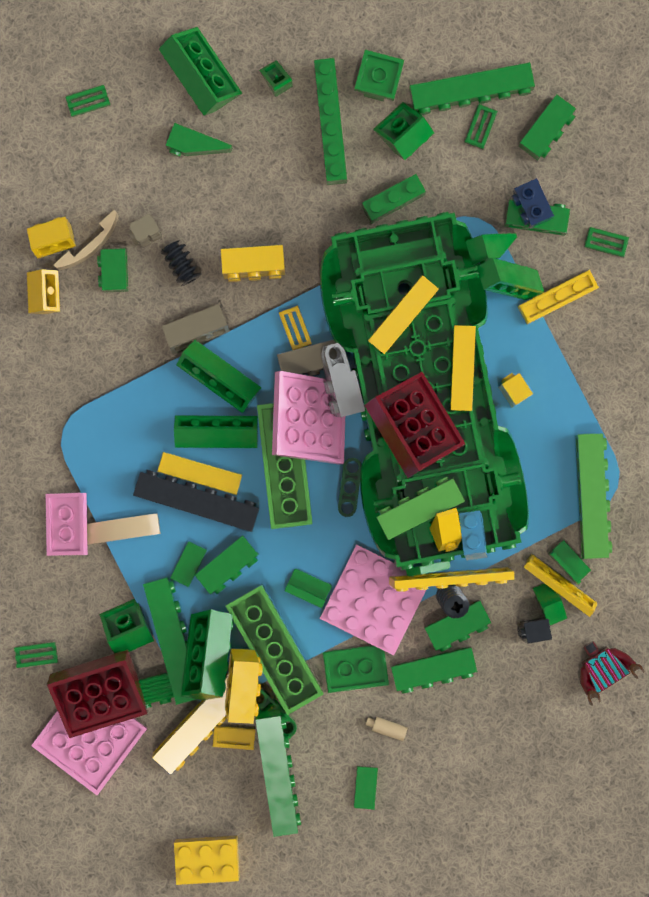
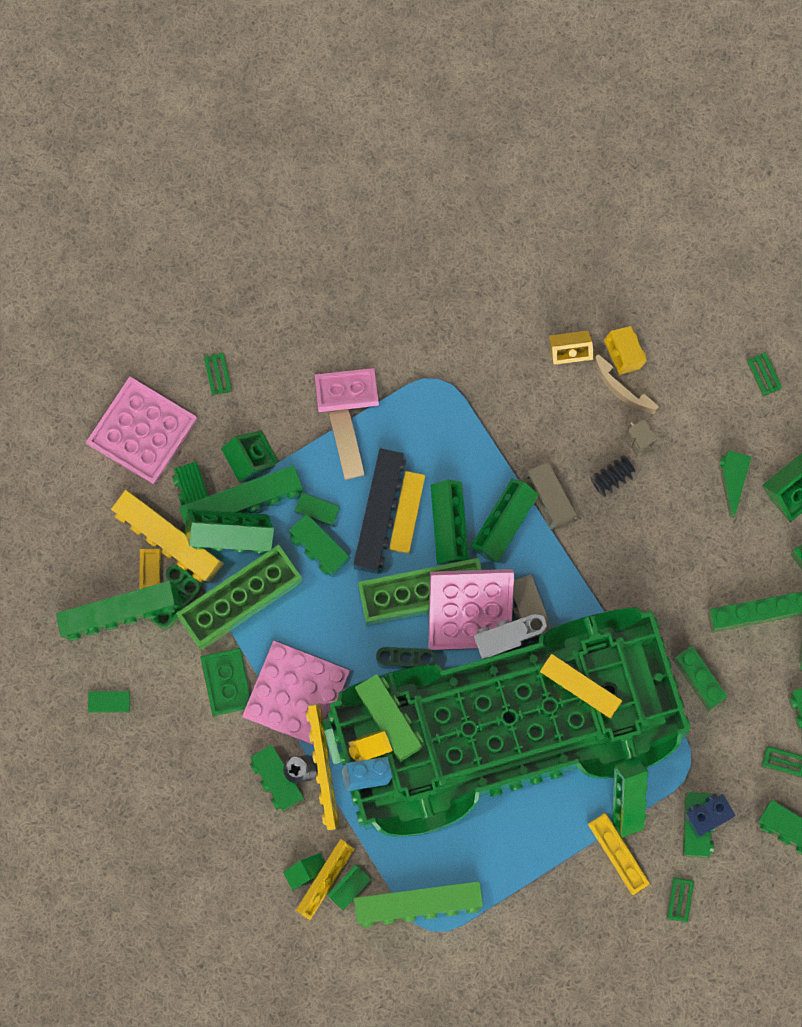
camera: 85 degrees right, 10 degrees down
(97, 694) = (183, 432): dark red slope -> none
(113, 270) = (599, 412): green brick -> none
(206, 860) = (29, 552): yellow brick -> none
(242, 686) = (201, 565): yellow brick -> none
(253, 263) = (620, 544): yellow brick -> none
(301, 344) = (575, 585): yellow tile -> none
(308, 588) = (302, 627): green panel -> none
(387, 728) = (169, 718): tan cylinder -> none
(404, 130) = (770, 683): green slope -> none
(414, 424) = (472, 707): dark red slope -> none
(434, 668) = (231, 758): green brick -> none
(463, 368) = (533, 751): yellow tile -> none
(489, 246) = (661, 774): green slope -> none
(514, 389) = (519, 813): yellow brick -> none
(534, 630) = (277, 854): black brick -> none
(604, 669) = (243, 930): torso -> none

